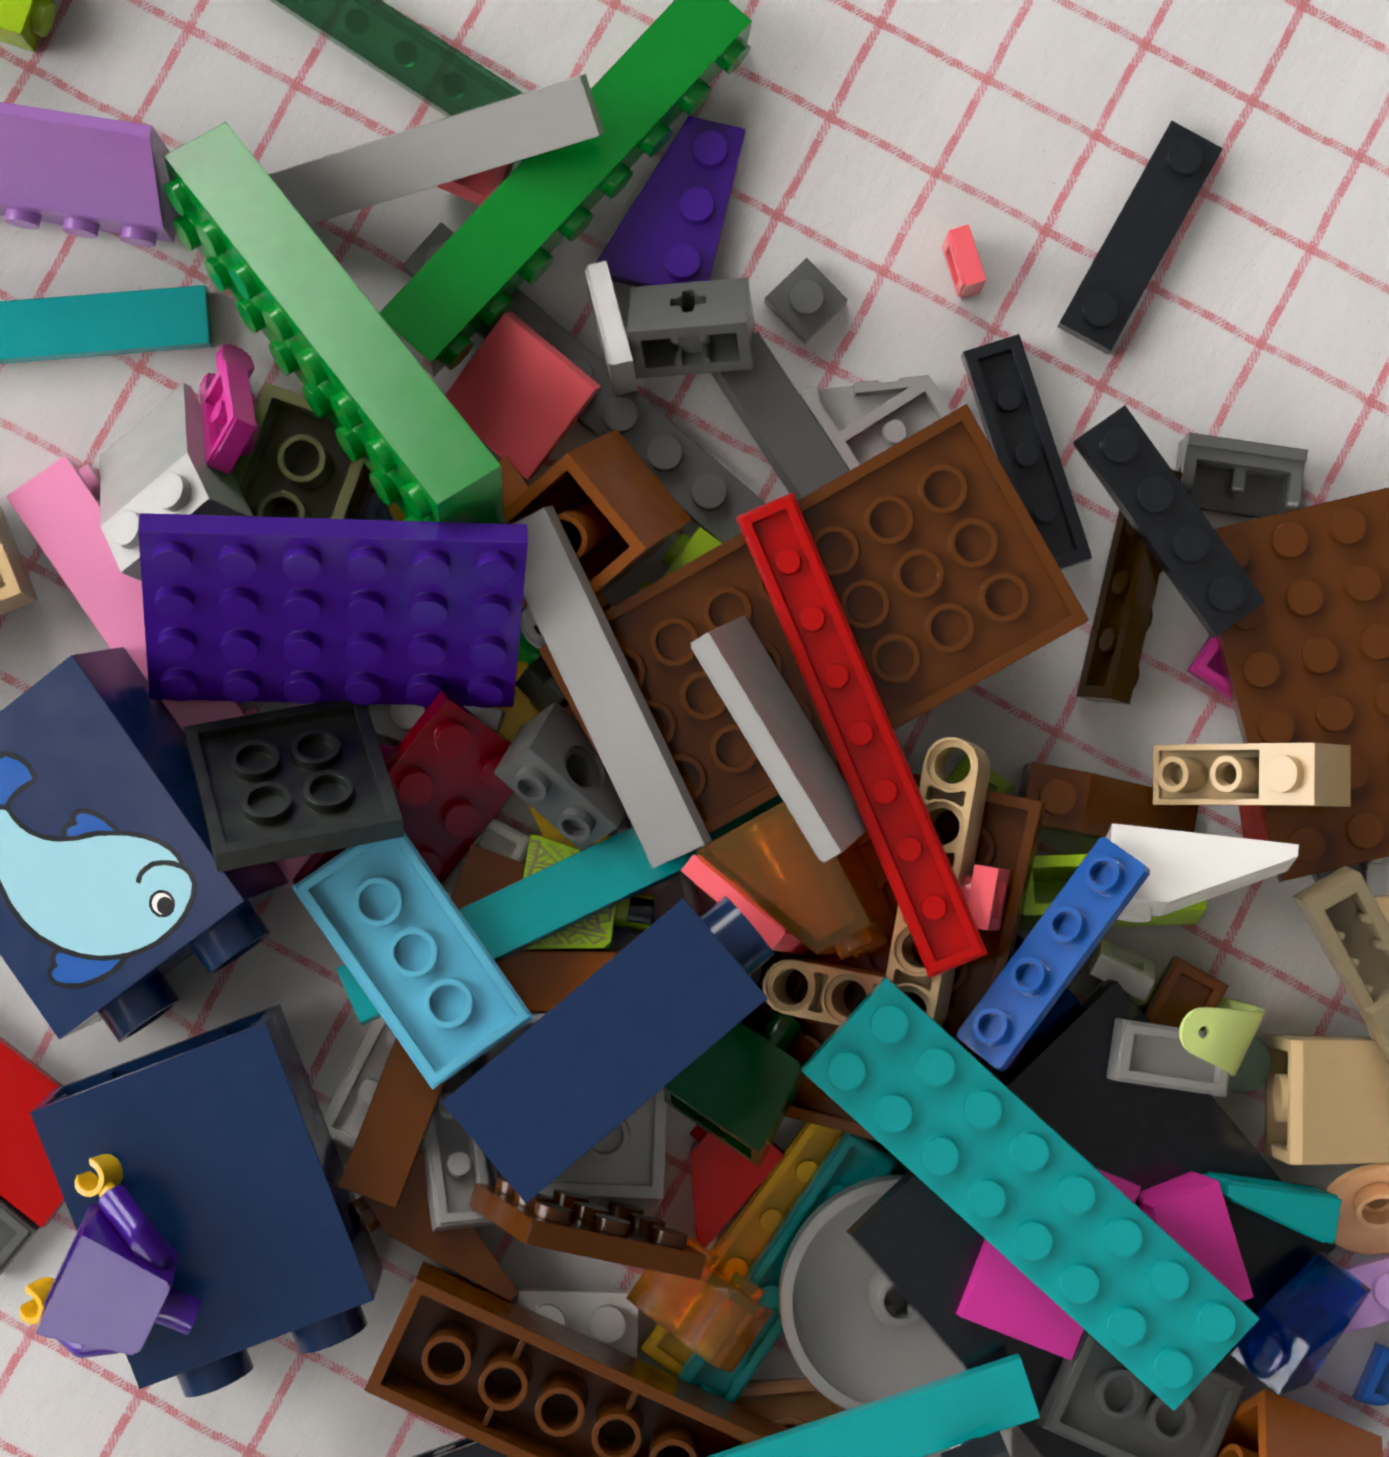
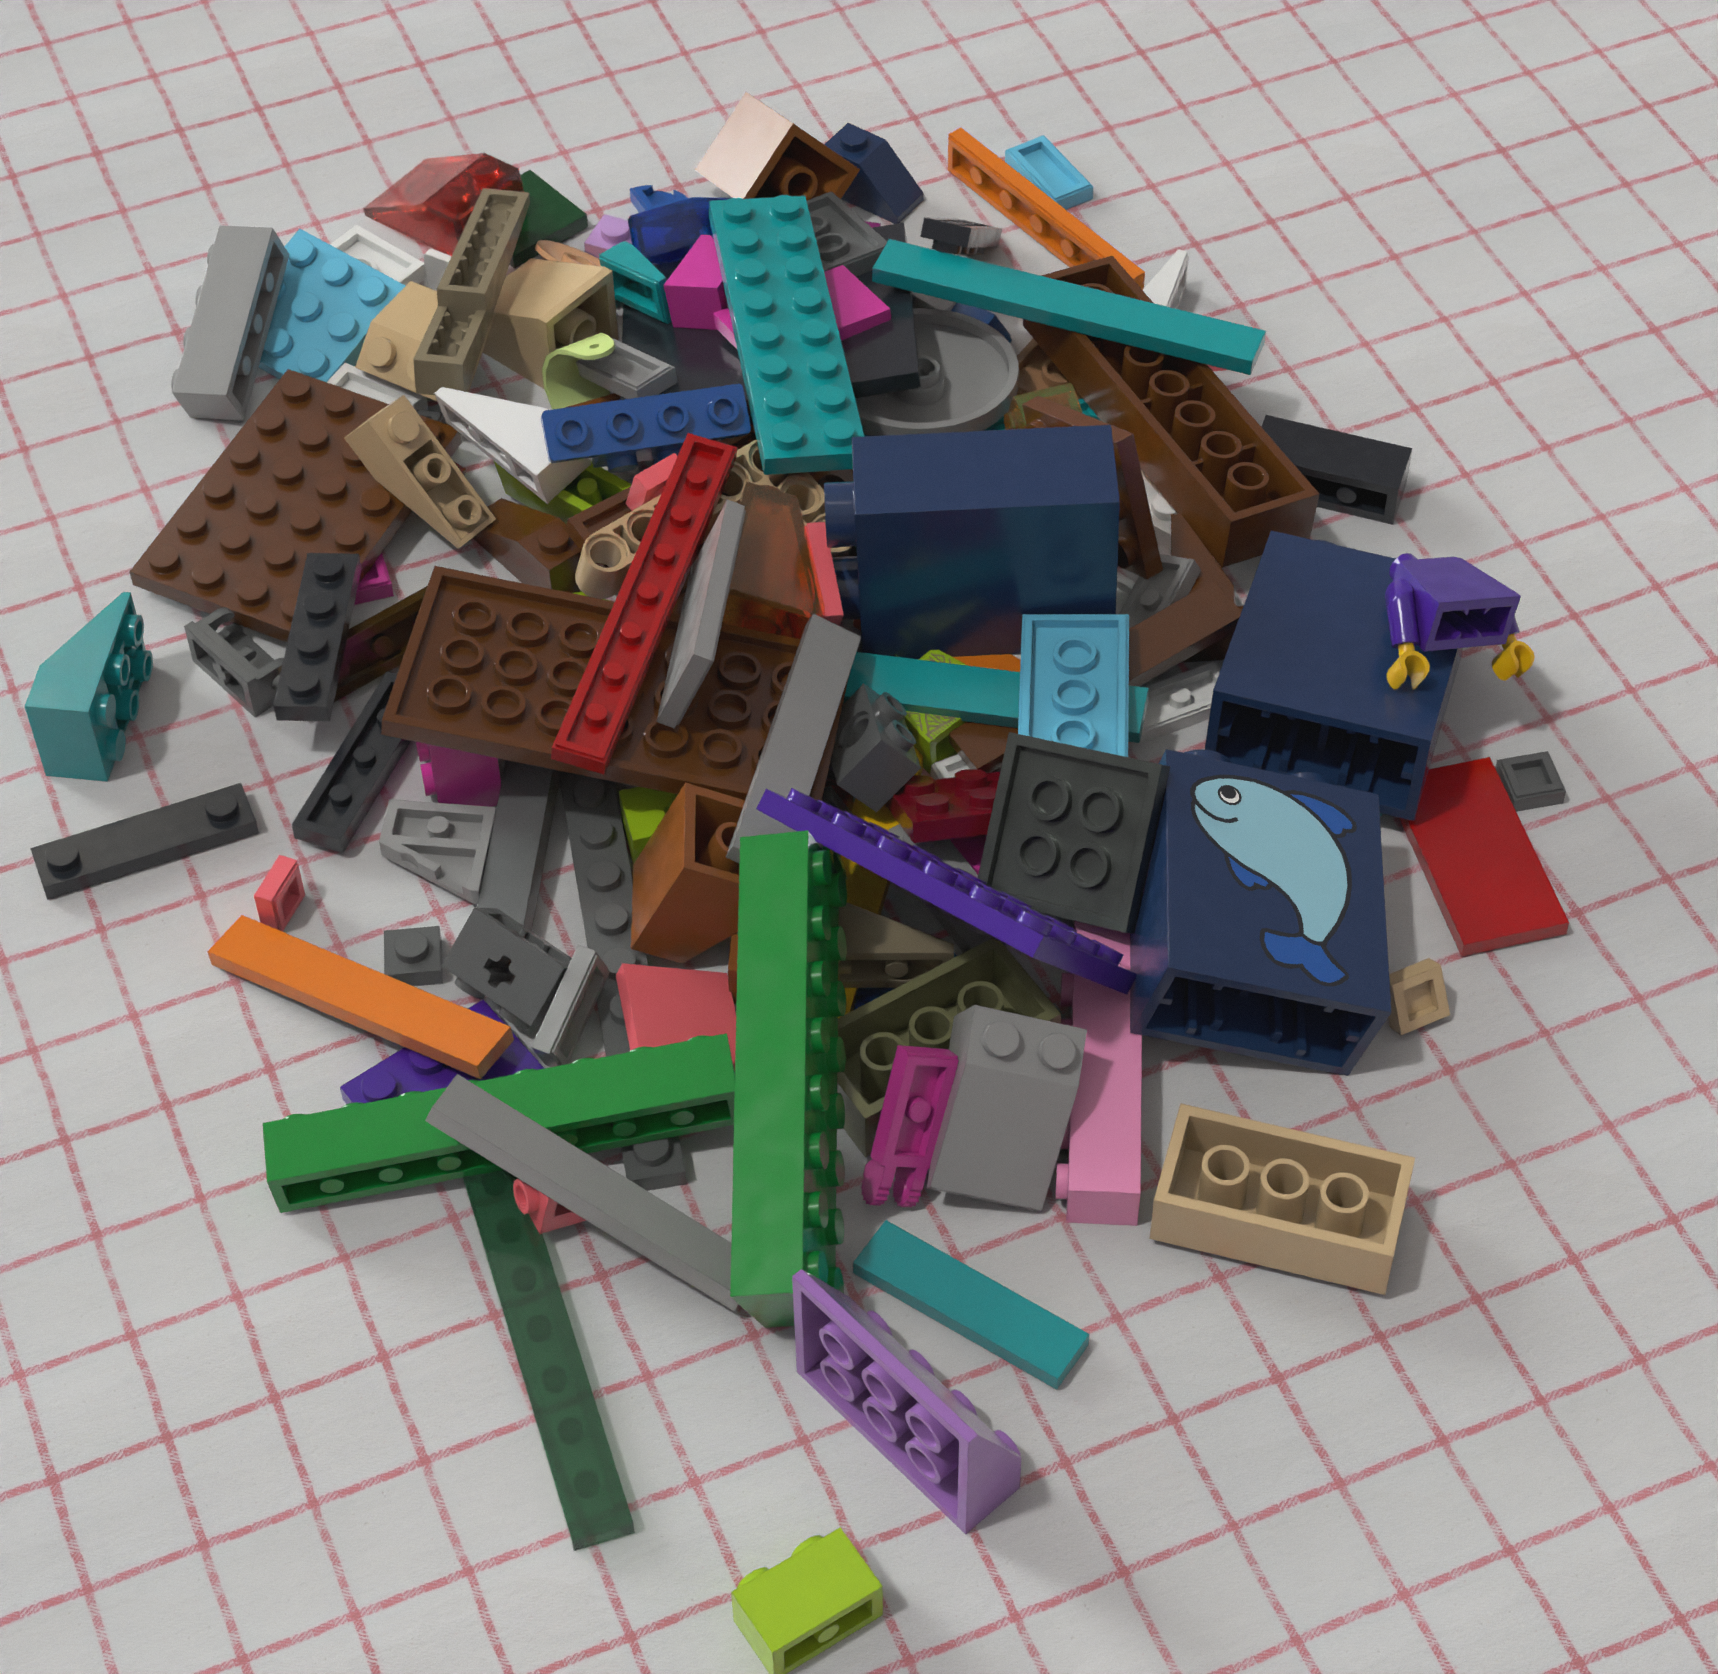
camera: 140 degrees left, 35 degrees down
(801, 213) = (361, 996): none -> orange tile
(1312, 306) = (90, 694): none -> teal slope

